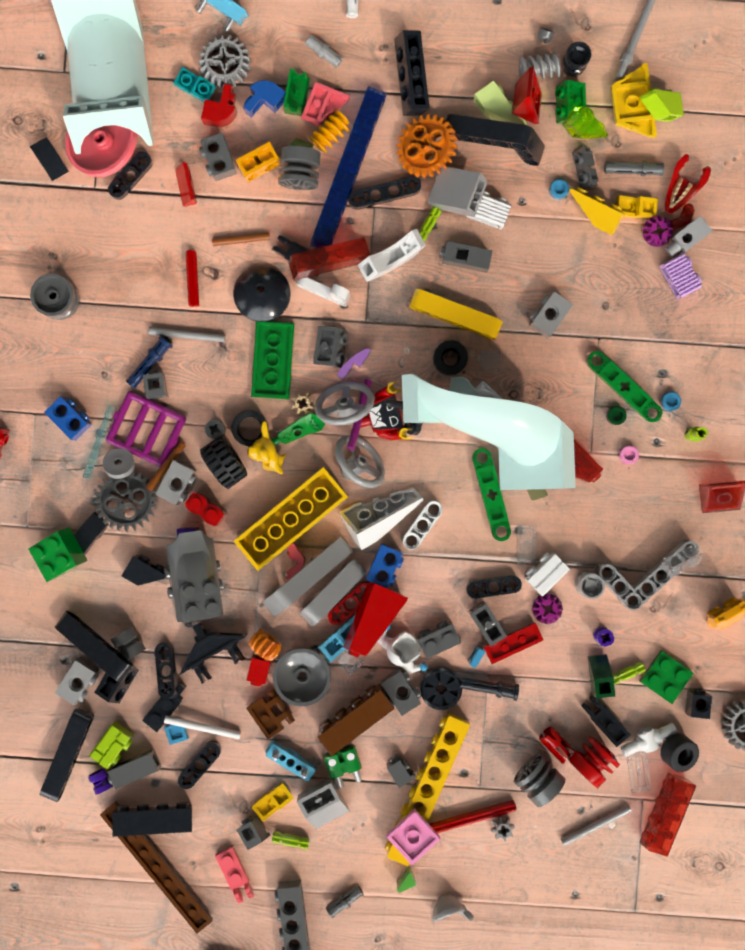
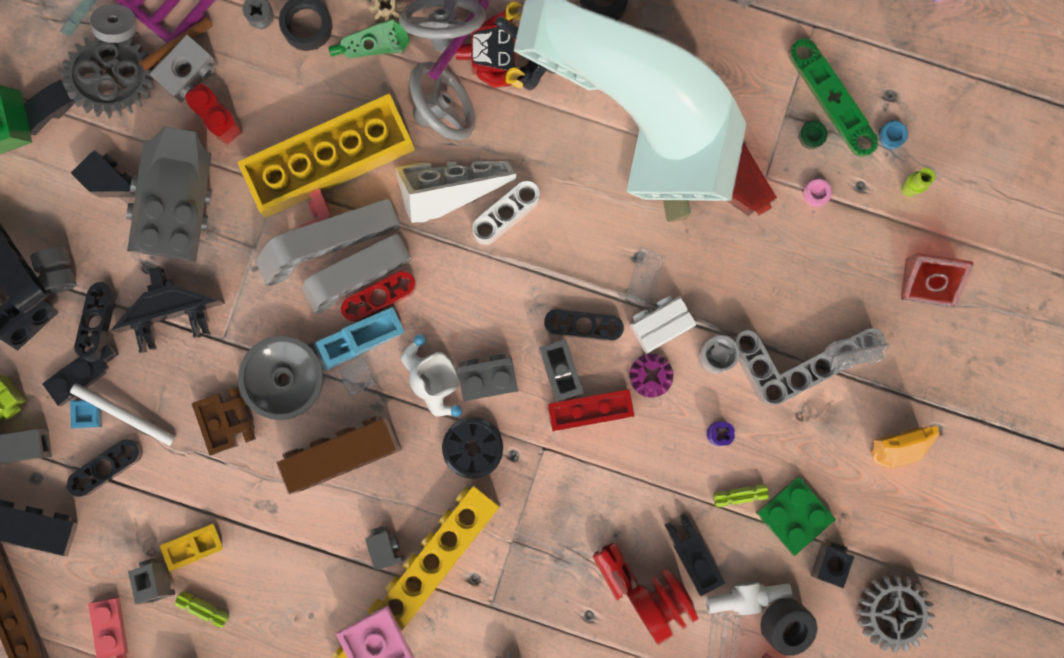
camera: 10 degrees right, 5 degrees down
(223, 462) = (254, 53): black tyre -> none
(258, 671) = (224, 355): red brick -> none
(265, 451) = (316, 54): yellow animal -> none
(265, 645) = (242, 320): orange gear -> none
(276, 749) = (253, 514): medium azure piece -> none
(322, 803) = (260, 568): light grey slope -> none
(342, 762) = (306, 515): green piece -> none
(372, 618) = (403, 318): red slope -> none
(380, 564) = (433, 251): blue brick -> none
(405, 702) = (403, 424): dark grey brick -> none
(474, 816) = (462, 645): red axle -> none
(476, 656) = (534, 414): dark azure tile -> none
(494, 508) = (613, 176): green piece -> none
(499, 688) = (554, 470): black pin -> none
(539, 780) = (579, 615): dark grey wheel -> none
(601, 676) = (702, 488): dark green slope -> none

